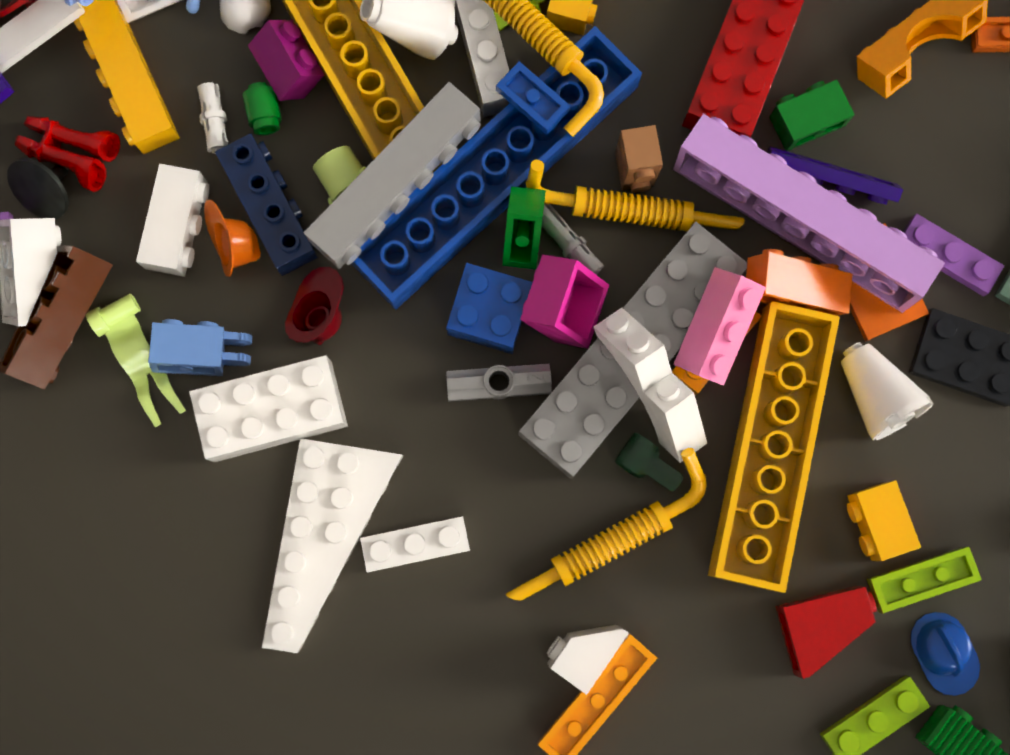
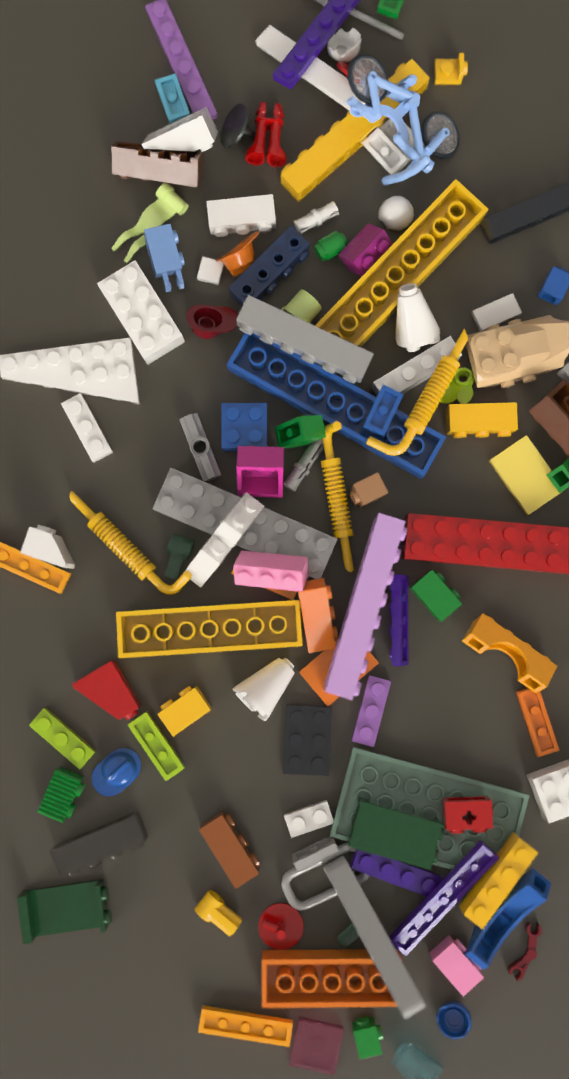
camera: 75 degrees right, 5 degrees up
(239, 291) = (210, 270): none -> white tile

